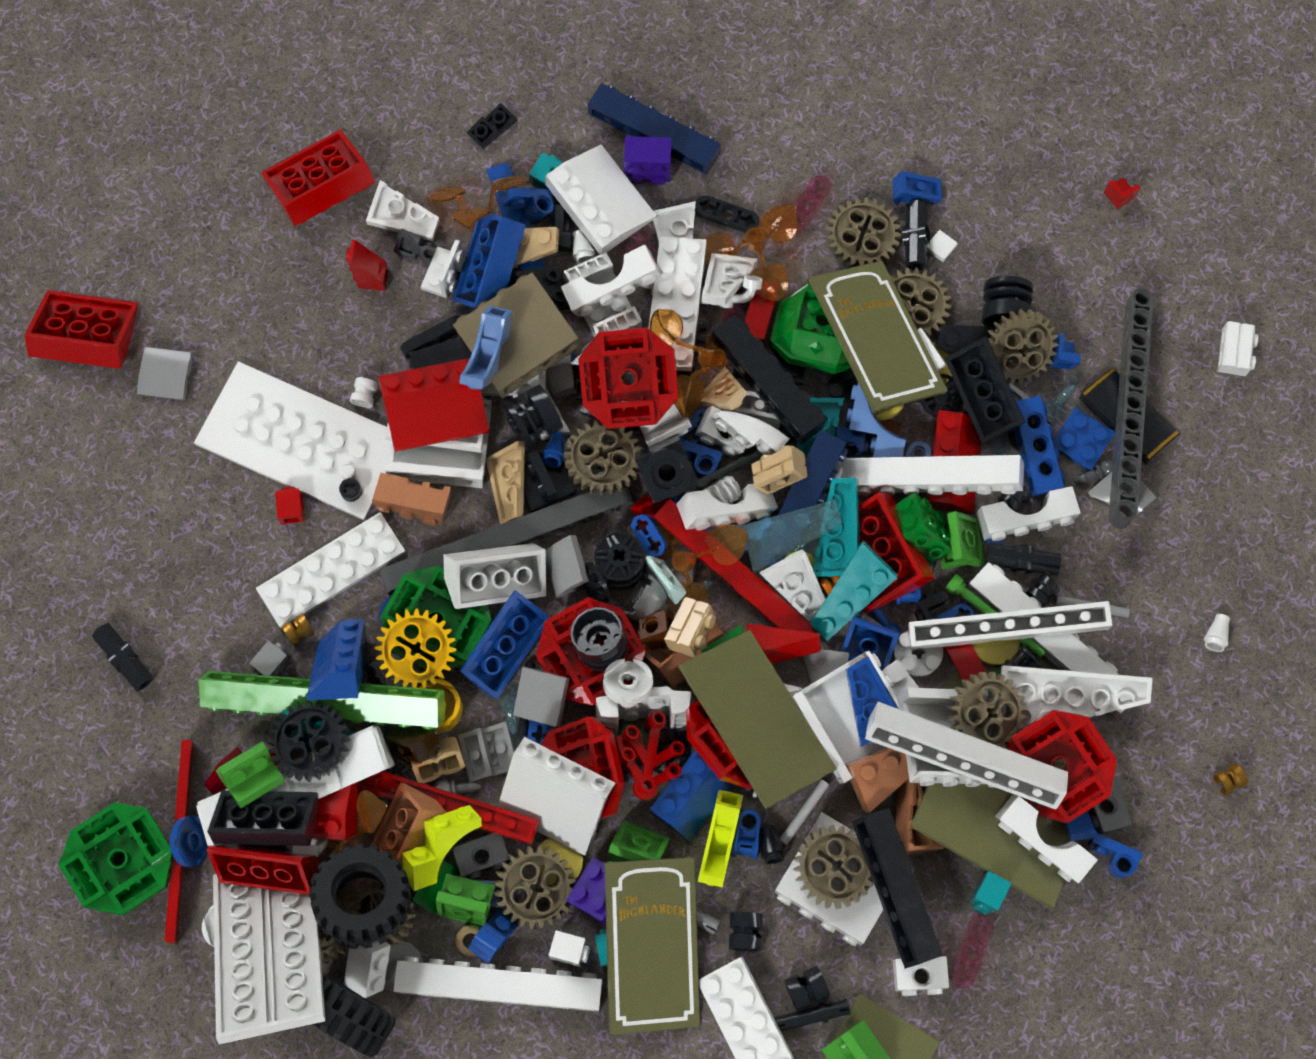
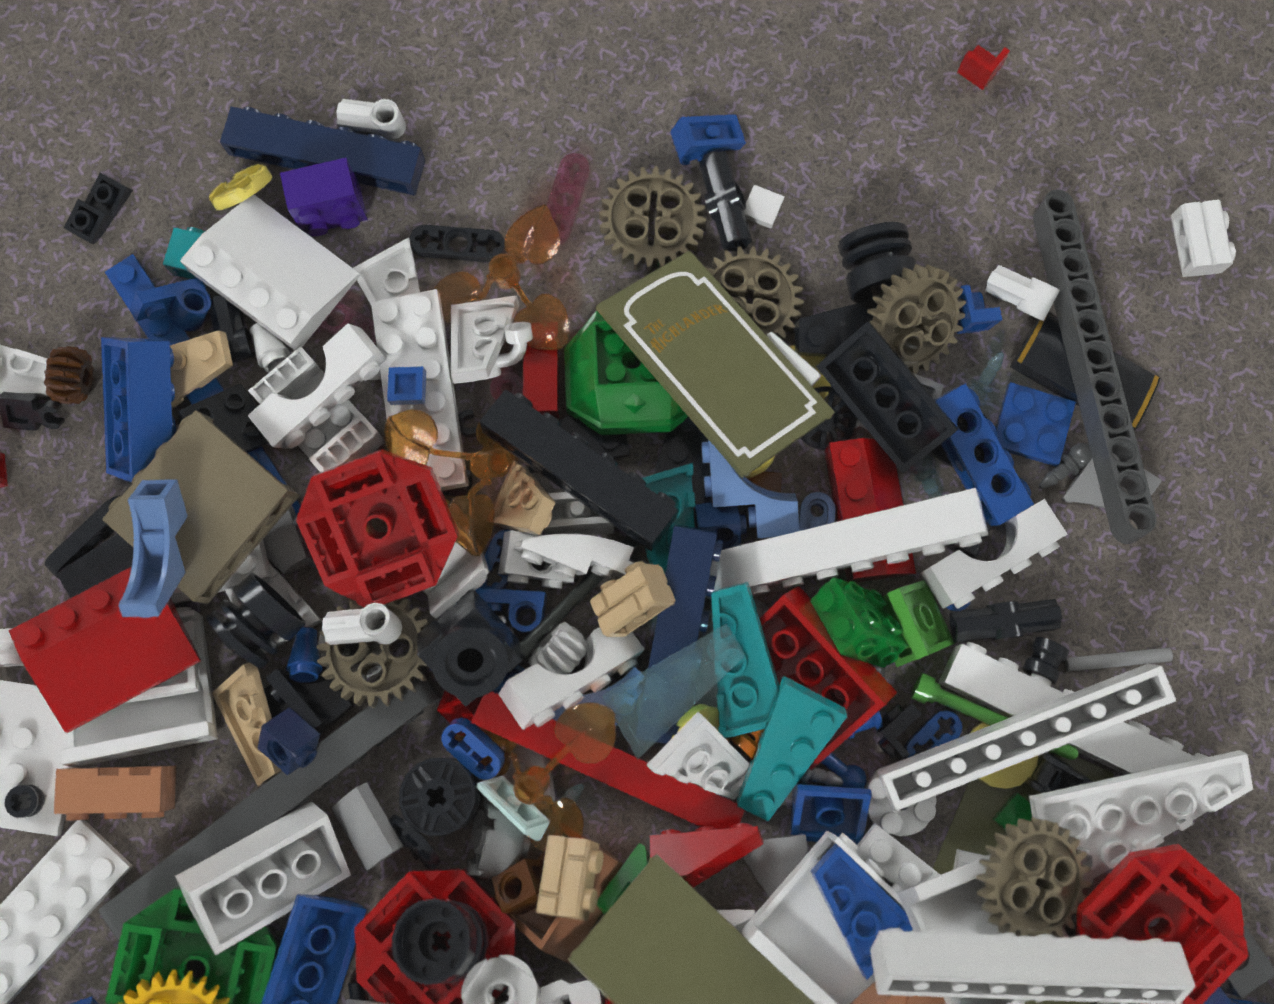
camera: 15 degrees left, 5 degrees up
(443, 270) = (81, 435): white bracket -> none
(446, 230) = (68, 375): none -> reddish brown gear
(466, 216) = (80, 352): clear orange plant -> none
(533, 496) = (288, 741): none -> dark blue brick
(593, 138) = (243, 186): none -> light yellow tile
(601, 436) = (360, 625): none -> white piece
(671, 295) = (406, 385): none -> blue plate
(690, 115) = (369, 117): none -> white piece
(964, 660) = (976, 802): red slope -> none
(1103, 352) = (1029, 295): none -> white piece

